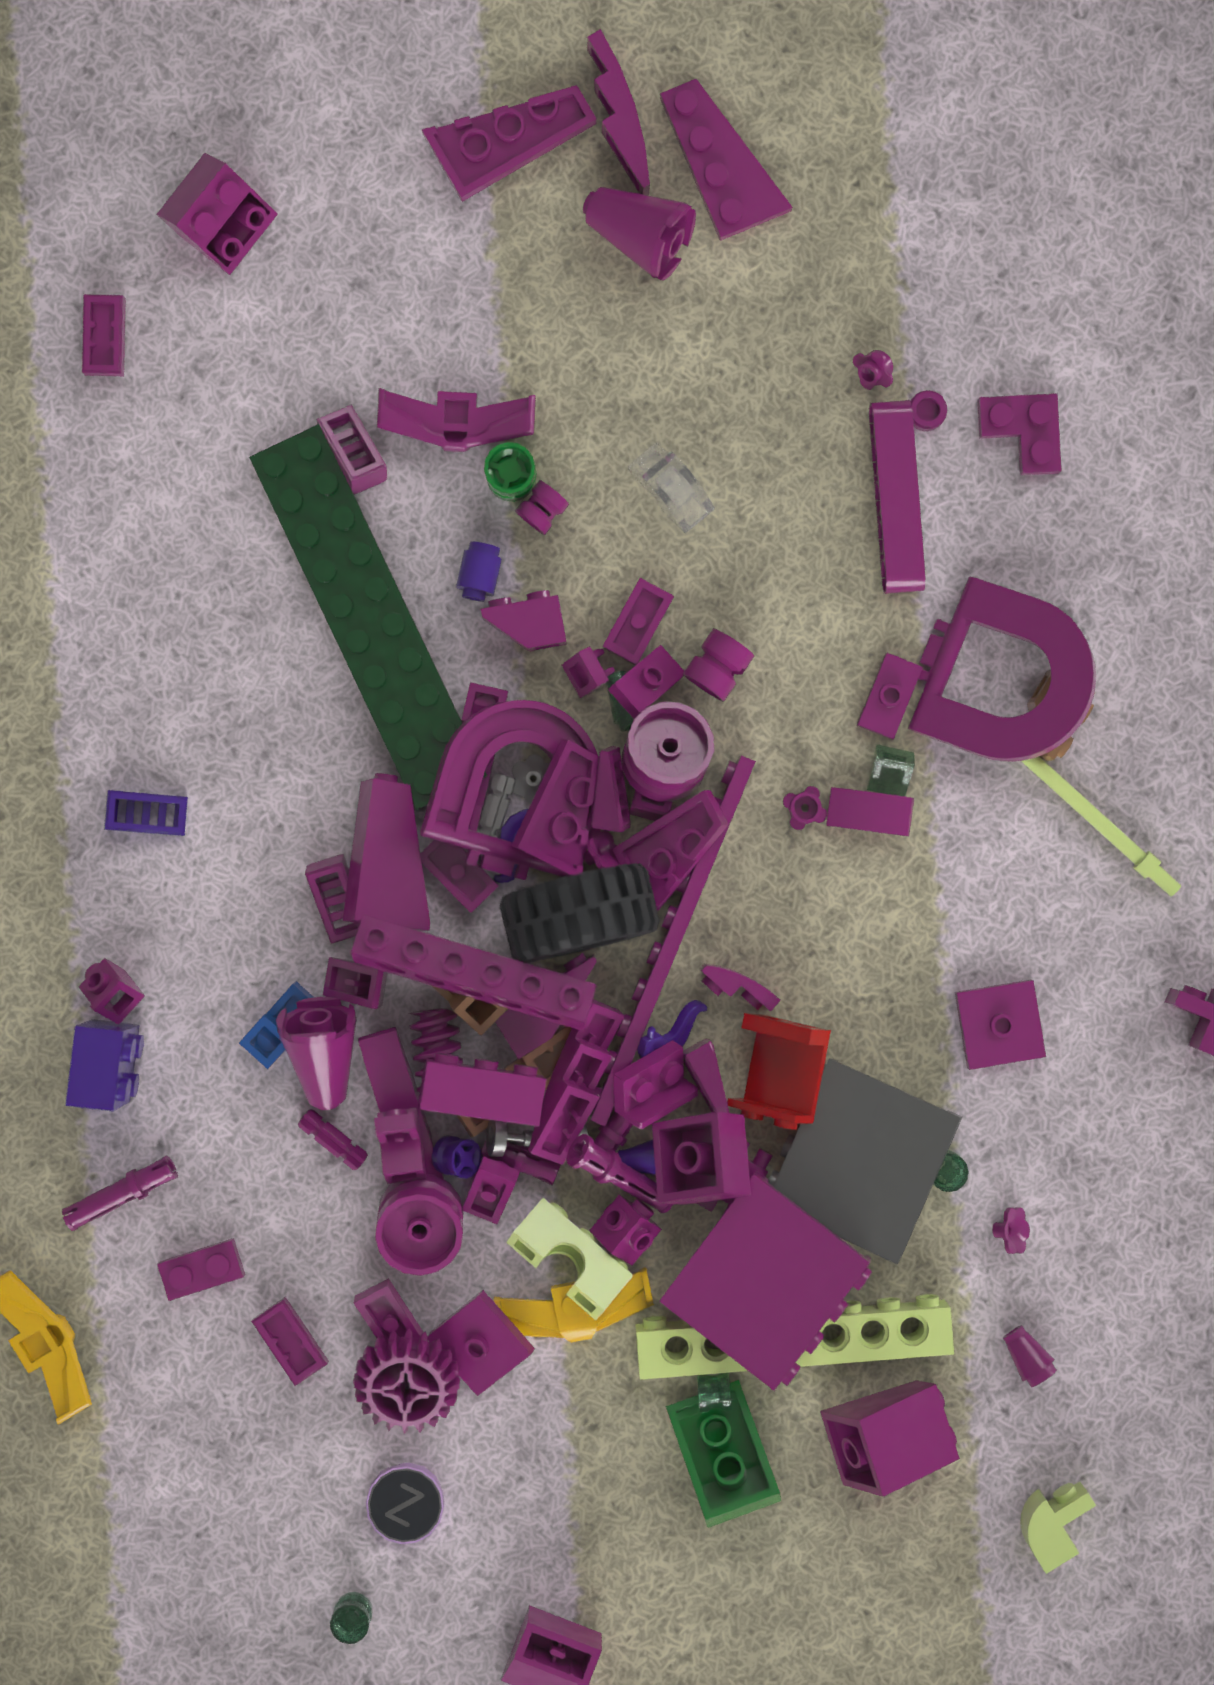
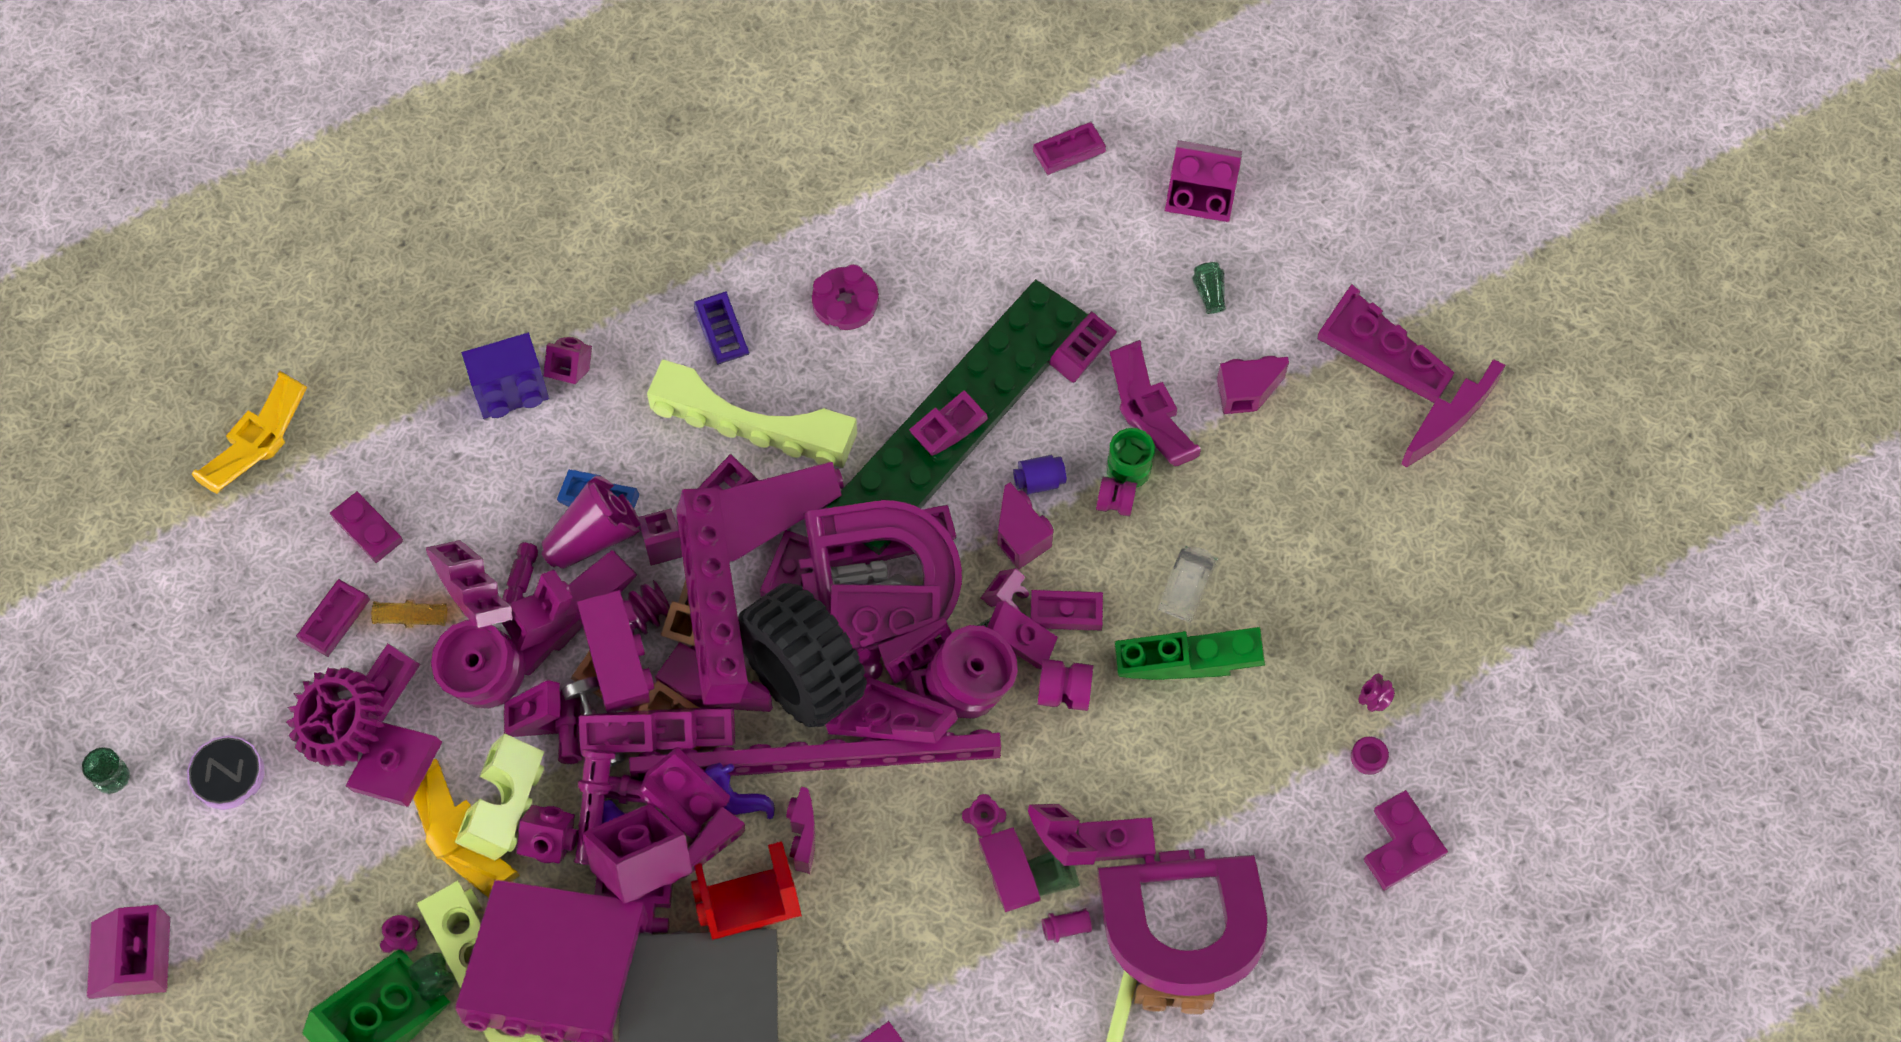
camera: 60 degrees right, 25 degrees down
(135, 1185) = (416, 447): magenta pin -> none
(153, 681) = (850, 281): none -> magenta plate
(322, 1265) = (409, 613): none -> clear yellow pin
(324, 773) = (816, 435): none -> yellowish green arch
(329, 1199) = (468, 584): none -> magenta slope
(350, 278) = (1210, 284): none -> clear green cone
(385, 638) = (949, 425): none -> magenta slope
(456, 1156) = (557, 672): dark purple wheel -> none
(484, 302) = (1249, 383): none -> magenta slope
(642, 227) = (1377, 469): magenta cone -> none
(642, 1407) = (397, 925): none -> magenta plate
(724, 169) = (1460, 511): magenta wing -> none
(746, 527) = (1189, 656): none -> green slope
(858, 749) = (1058, 832): none -> magenta slope
(898, 496) = (1282, 761): magenta beam -> none
(948, 786) = (1066, 925): none -> magenta pin

